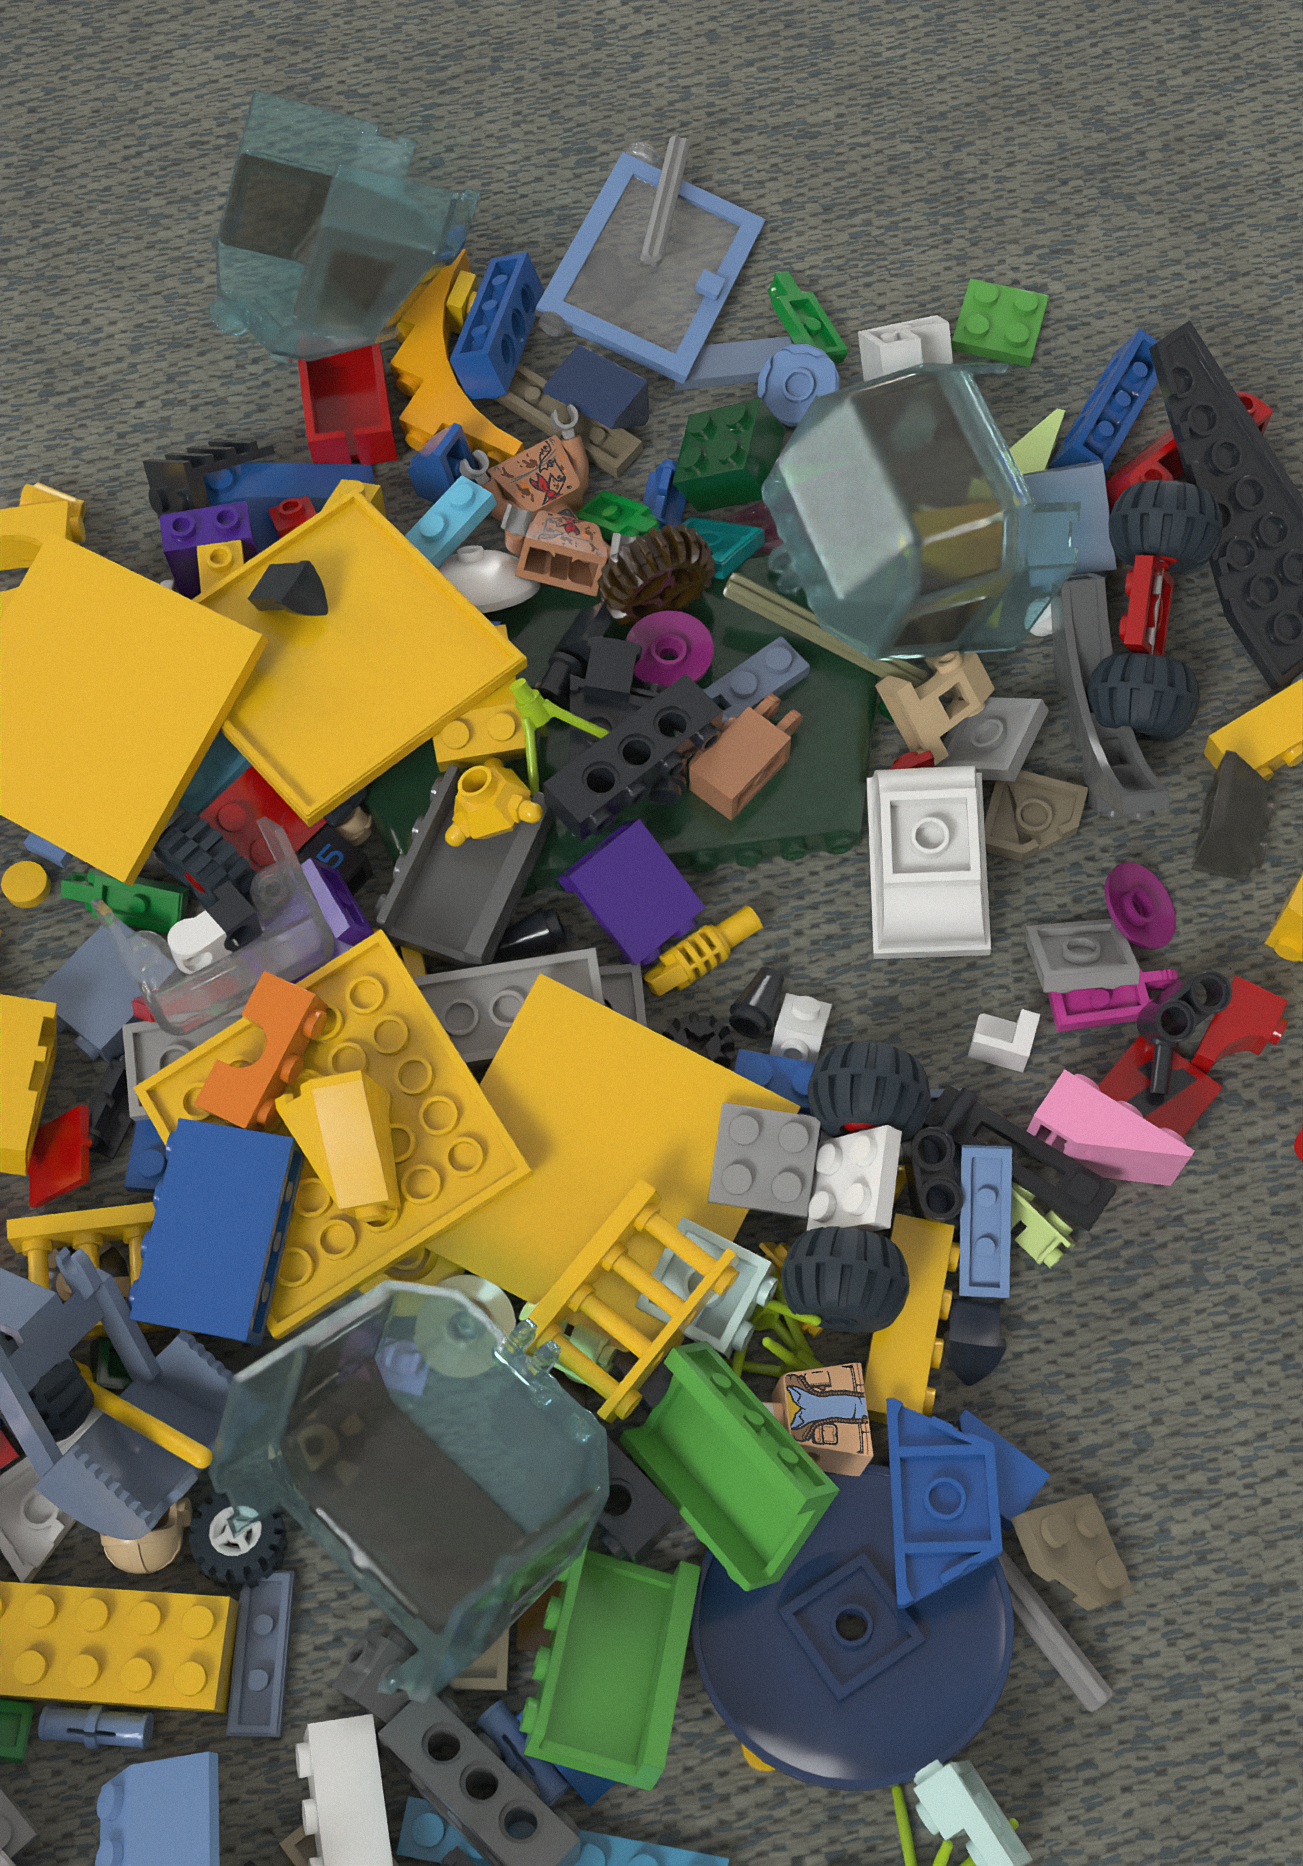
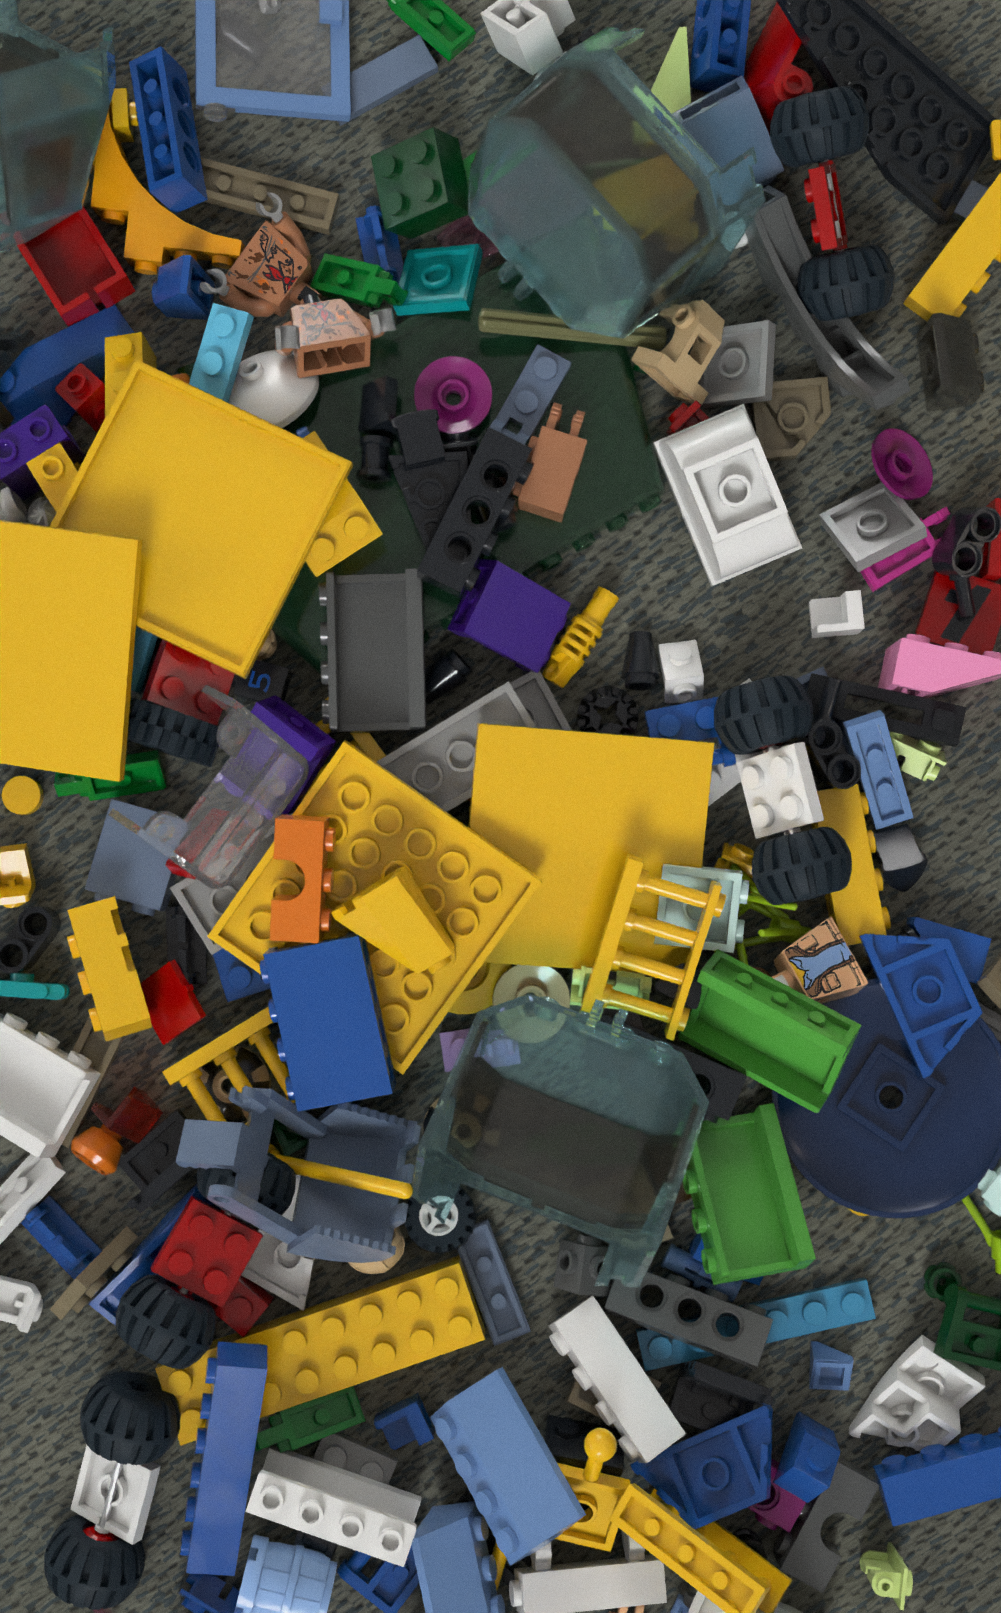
camera: 25 degrees left, 20 degrees up
(69, 1786) = (405, 1422): none -> blue panel
(96, 1726) = (403, 1380): medium blue pin -> none
(214, 932) = (212, 793): leg -> none
(290, 588) = (133, 482): black tile -> none
(490, 803) = (375, 594): yellow rock -> none
(534, 715) = (379, 506): lime plant -> none
(600, 389) = (284, 164): dark blue slope -> none
(656, 574) = (419, 335): dark brown gear -> none
(764, 1160) = (703, 796): light grey plate -> none
(794, 379) = (449, 85): medium blue tile -> none

